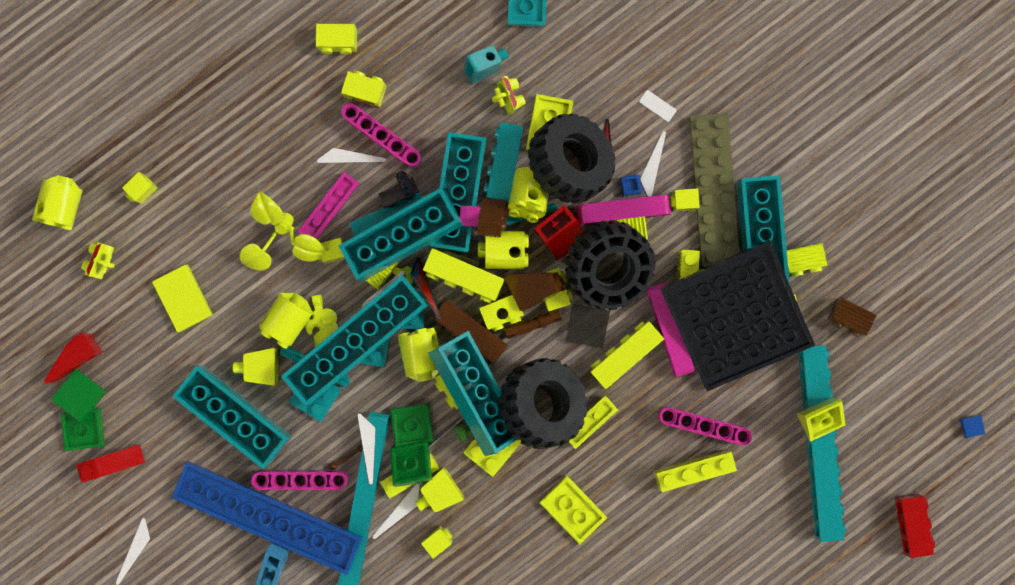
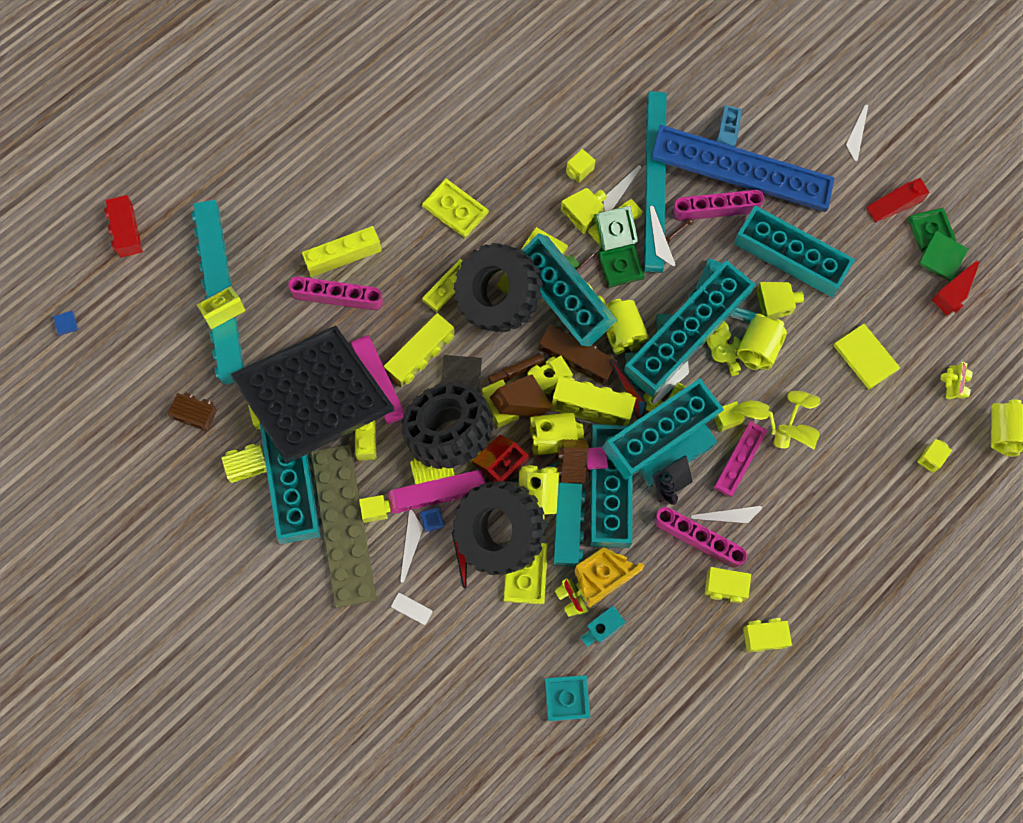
camera: 165 degrees right, 15 degrees down
(478, 110) = (604, 573): none -> yellow wing

